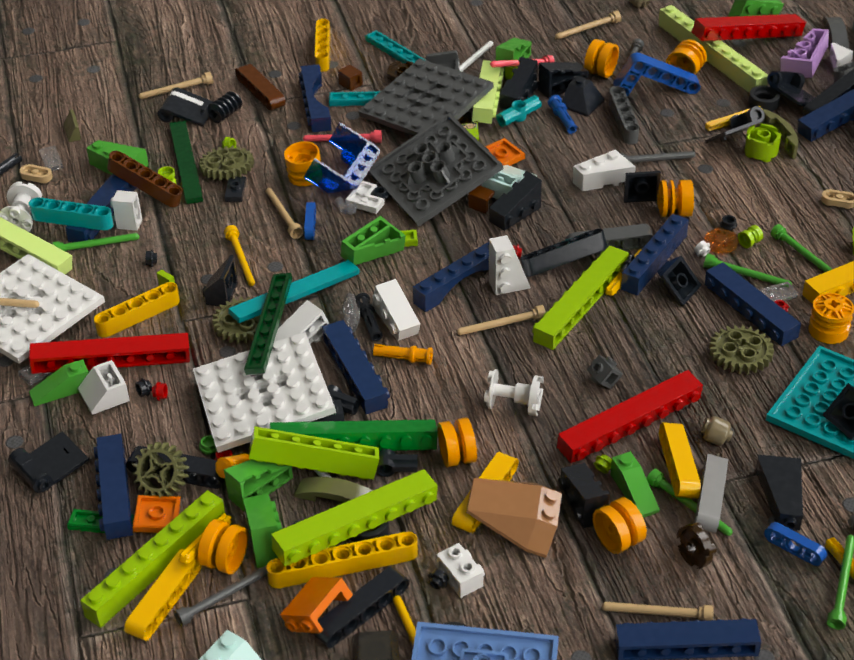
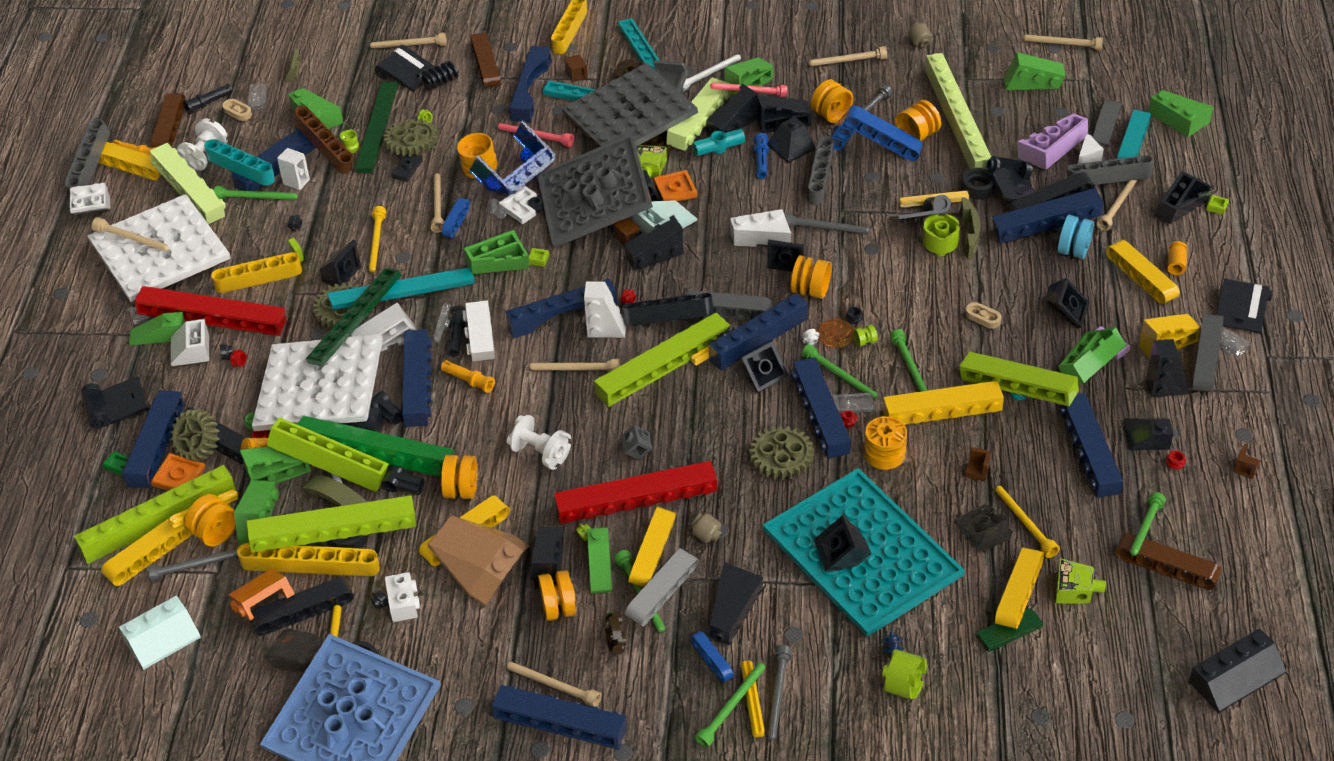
camera: 20 degrees right, 5 degrees up
(748, 27) = (1005, 97): red brick -> none

